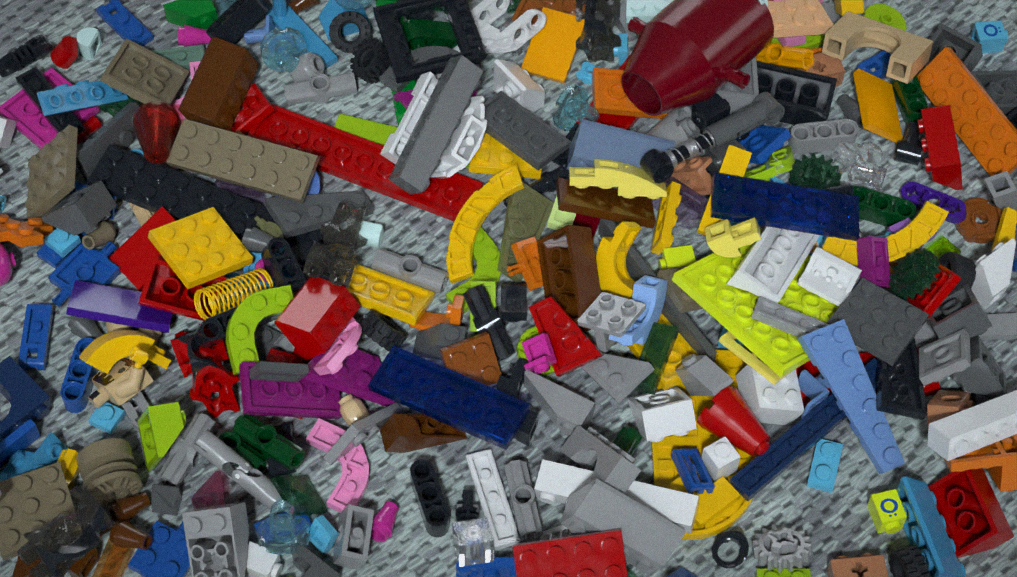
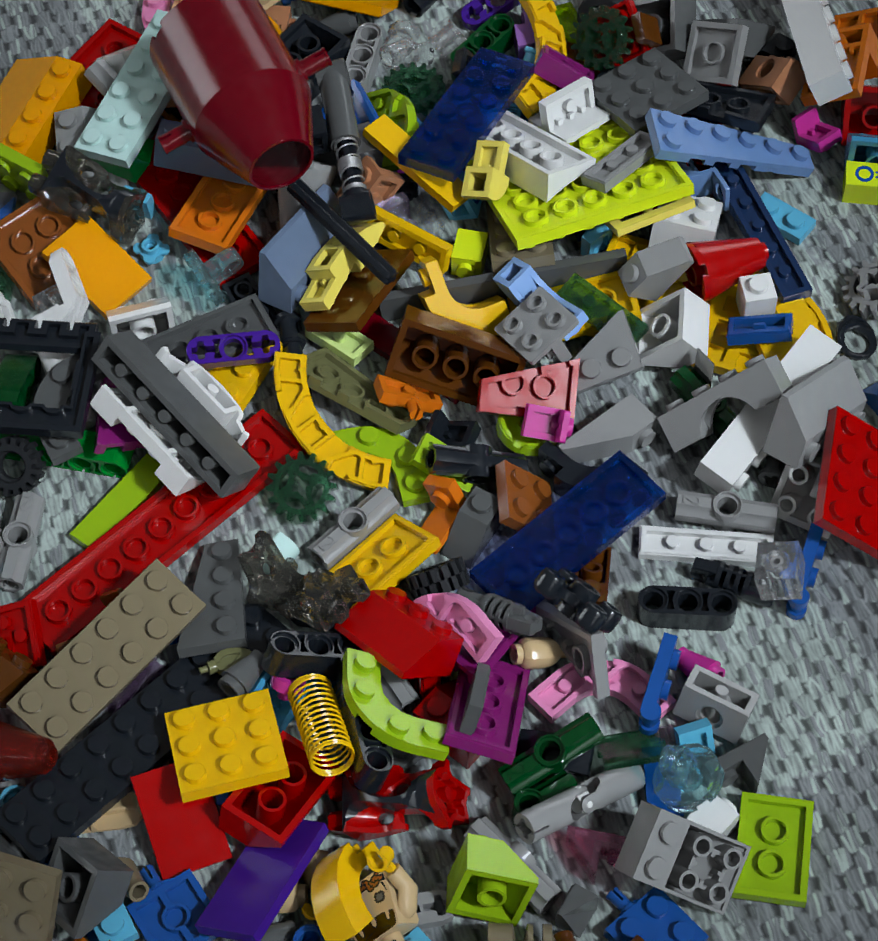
camera: 65 degrees left, 0 degrees up
(350, 492) = (658, 685): none -> blue plate
(364, 372) = (505, 613): none -> dark grey hinge
(382, 410) = (577, 600): none -> black gear
(427, 228) = (288, 492): none -> clear green gear
(510, 132) = (255, 337): none -> dark purple beam
(630, 163) = (343, 231): none -> black axle
(637, 443) = (704, 366): none -> white sticker
(921, 462) = (813, 133): none -> dark pink bracket
(937, 300) = (646, 30): none -> reddish brown tile

